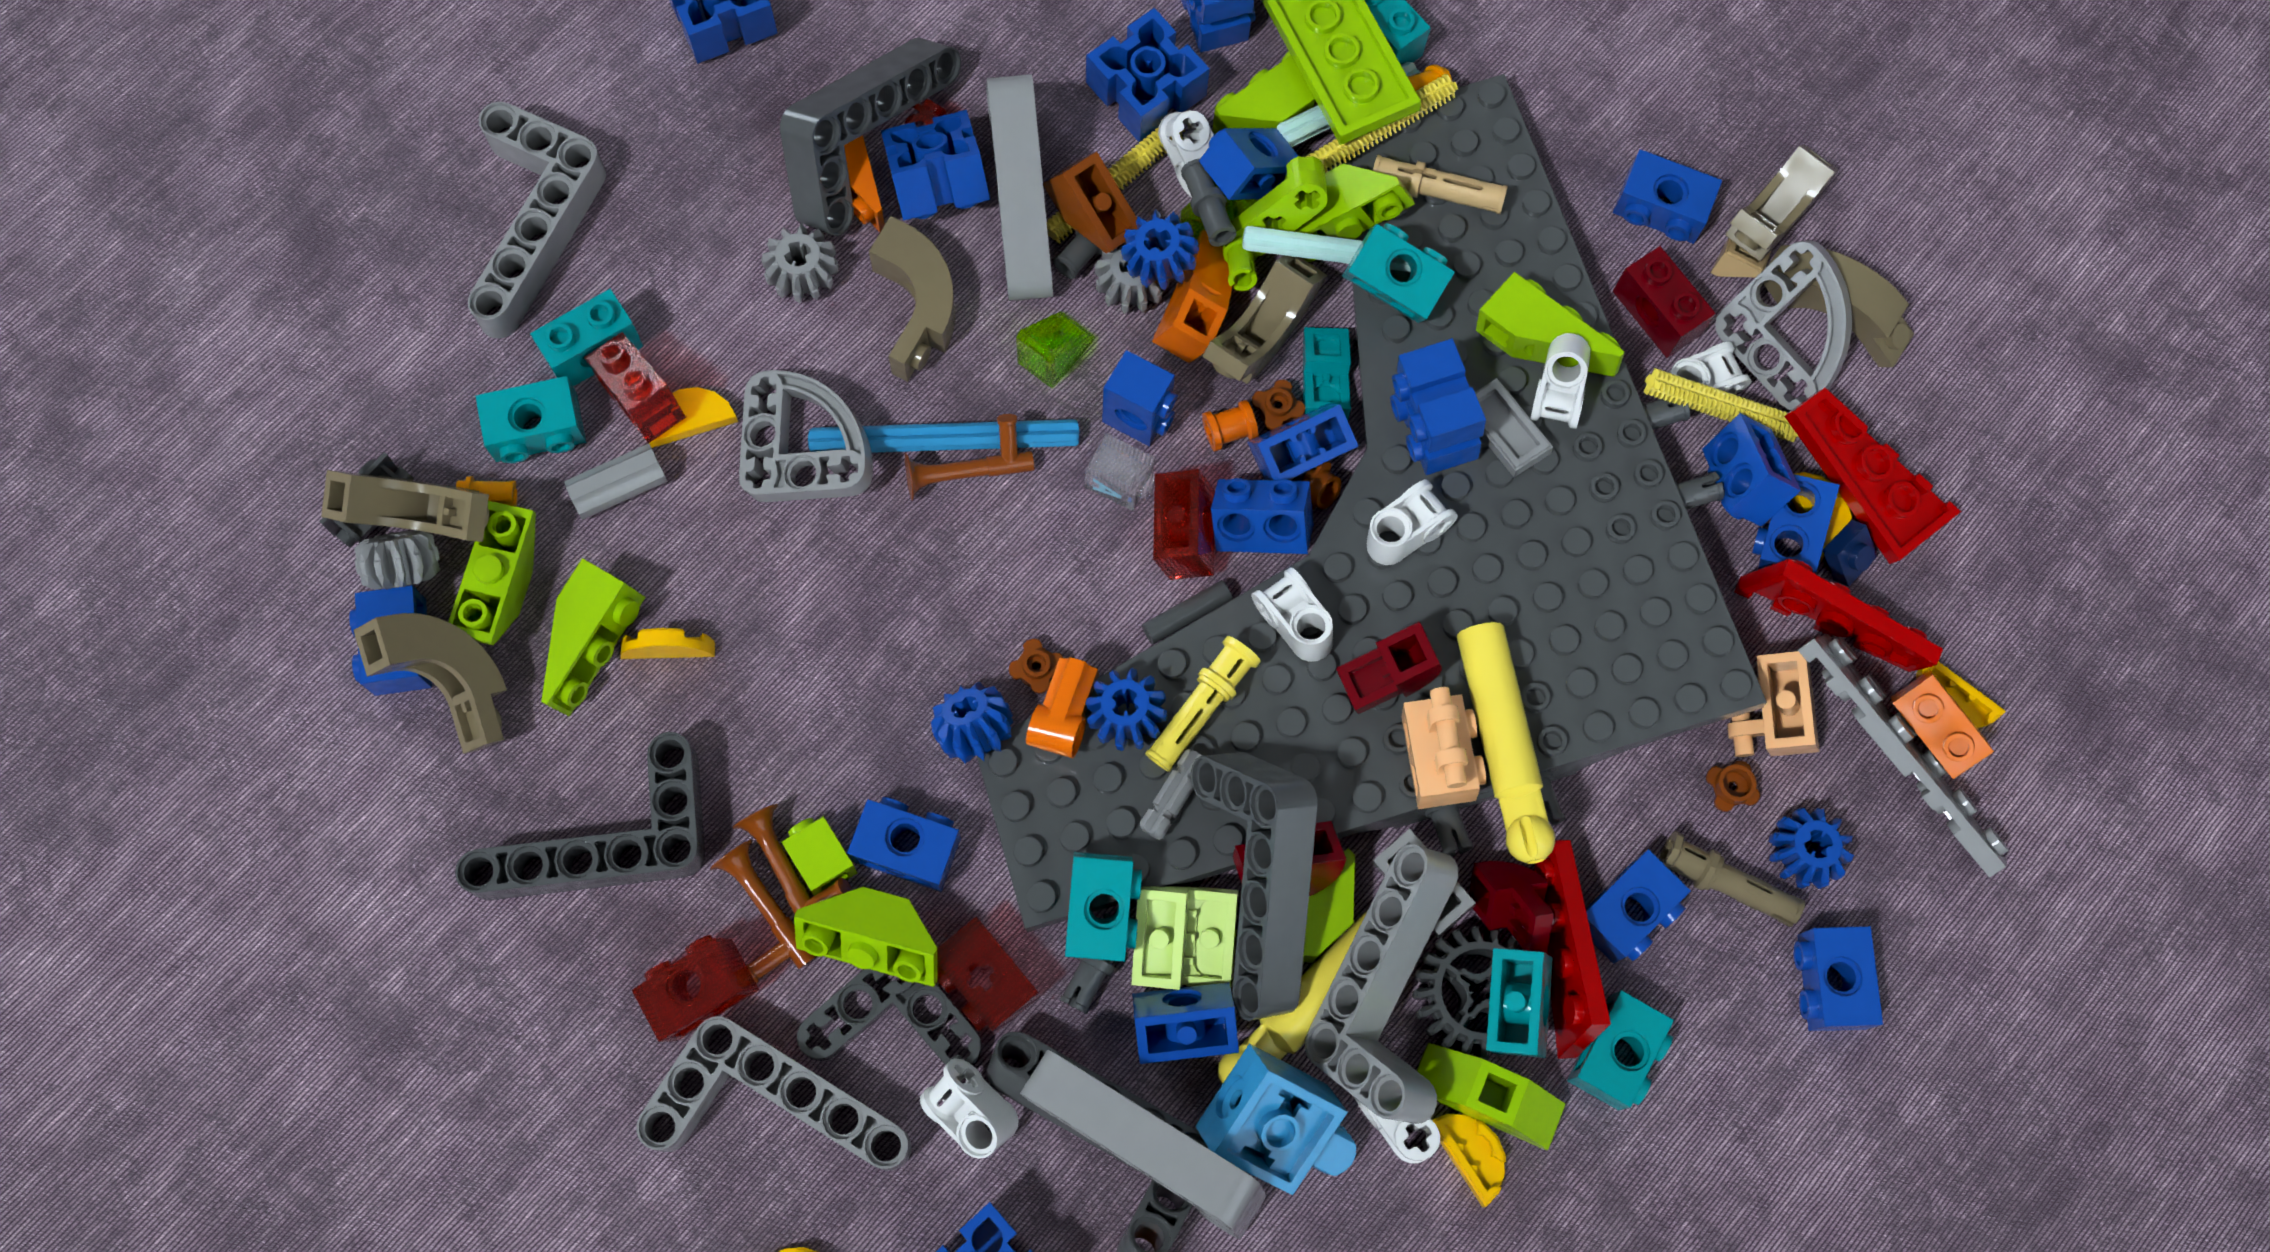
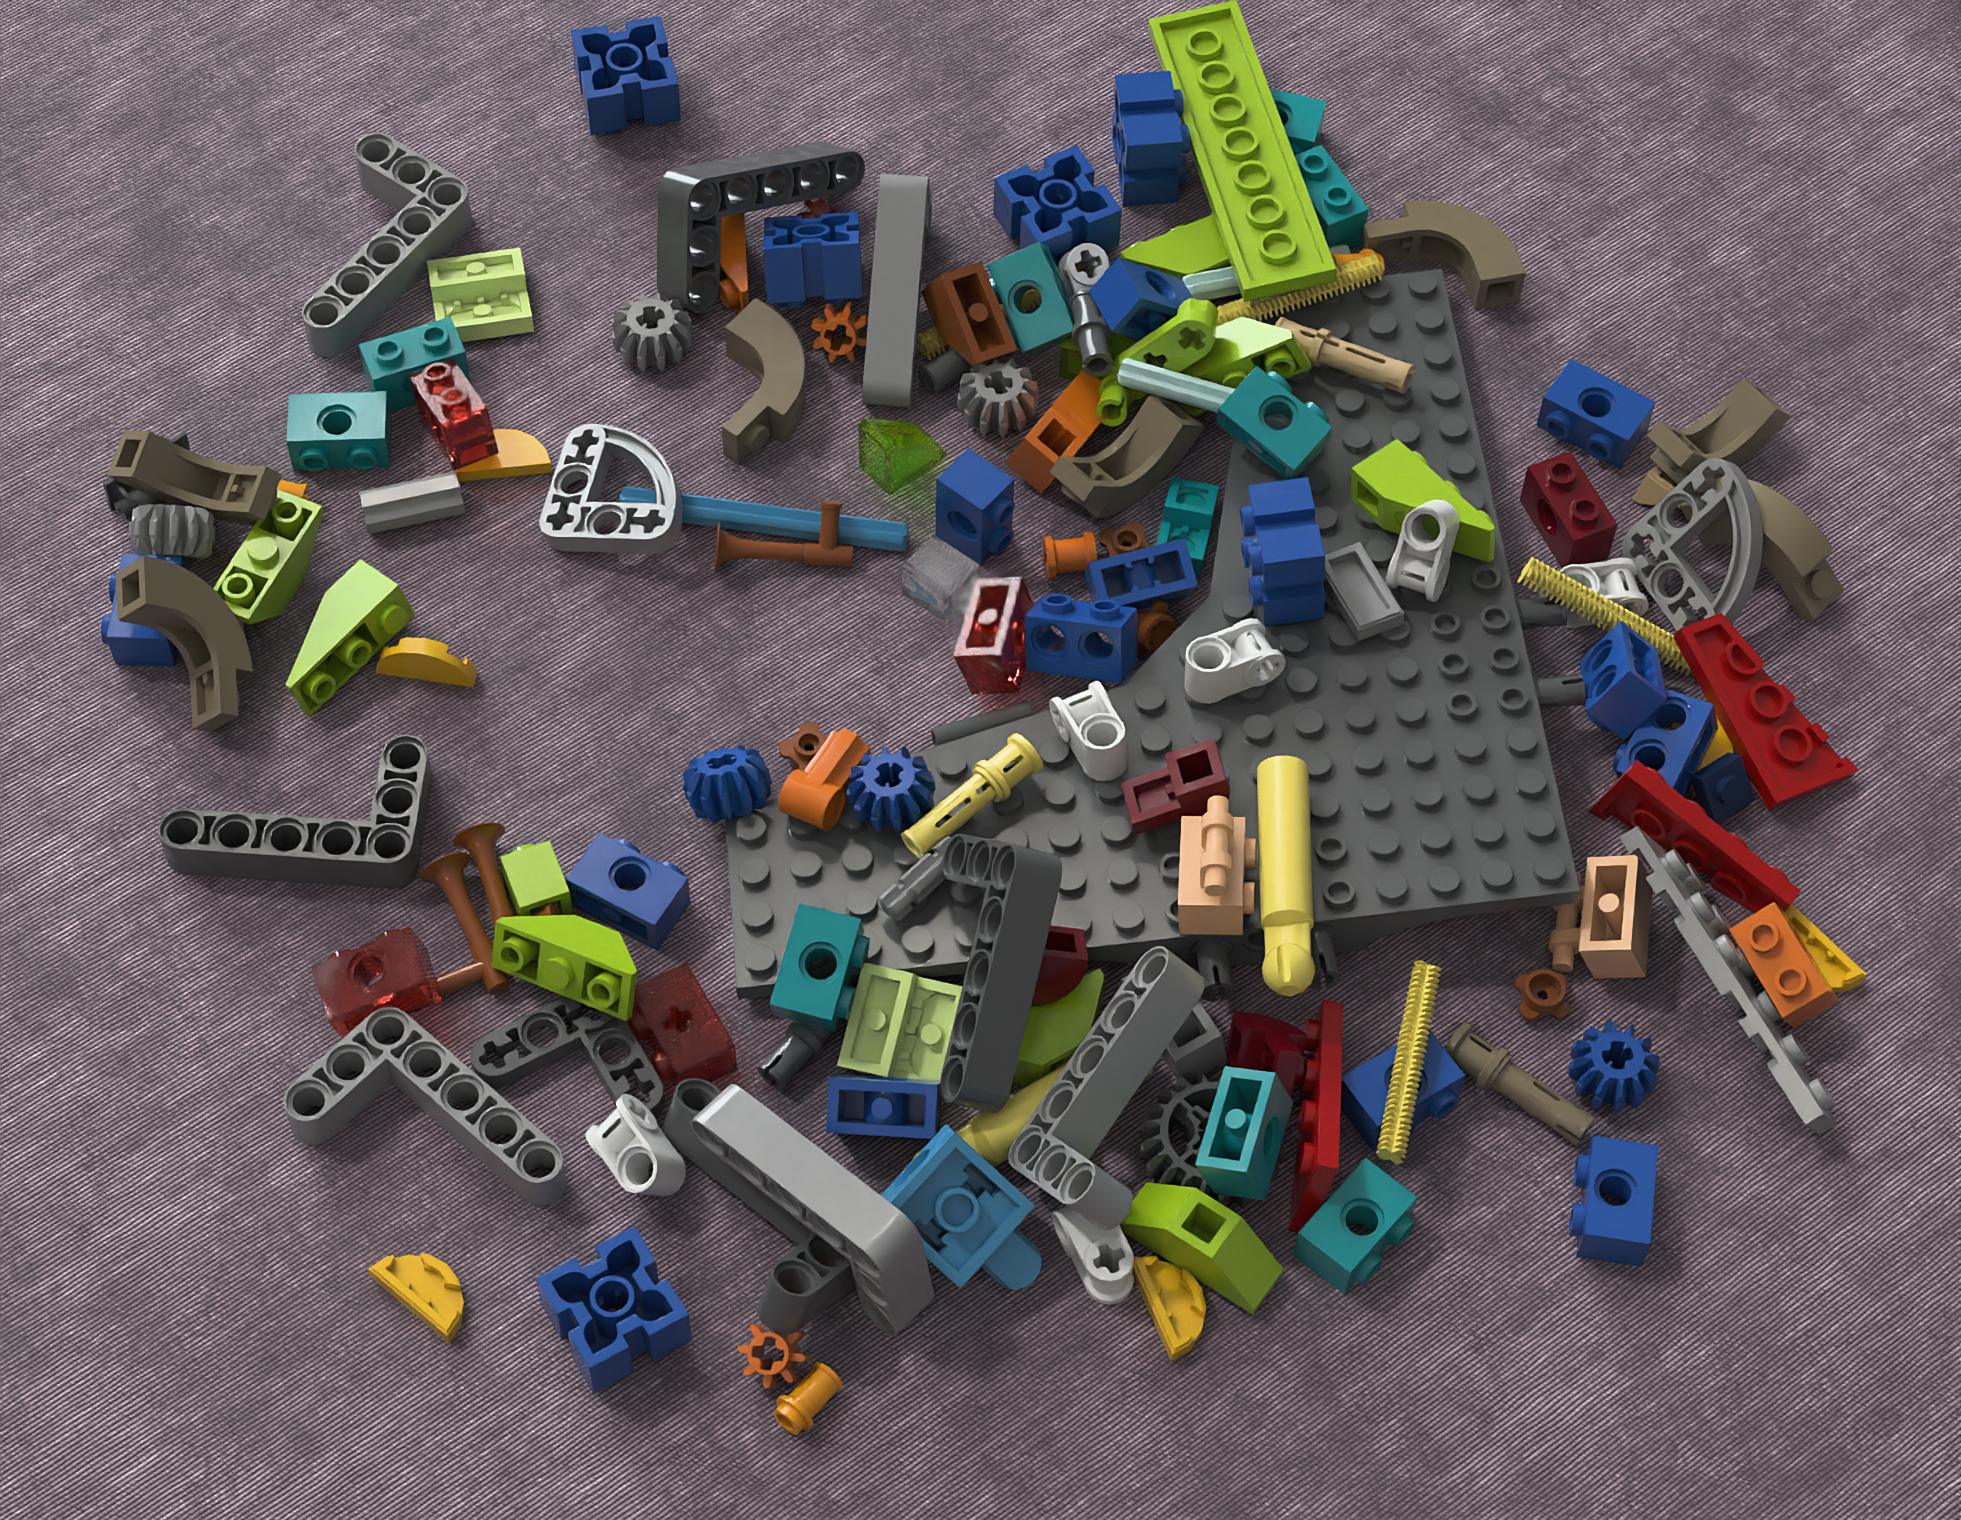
camera: 15 degrees right, 15 degrees down
(631, 250) = (482, 294): none -> yellowish green slope
(974, 246) = (827, 329): none -> orange gear
(1146, 146) = (1028, 270): none -> teal brick
(1148, 261) = (1028, 366): blue gear -> none
(1512, 40) = (1457, 240): none -> dark tan arch
(1642, 892) = (1408, 1062): none -> light yellow axle

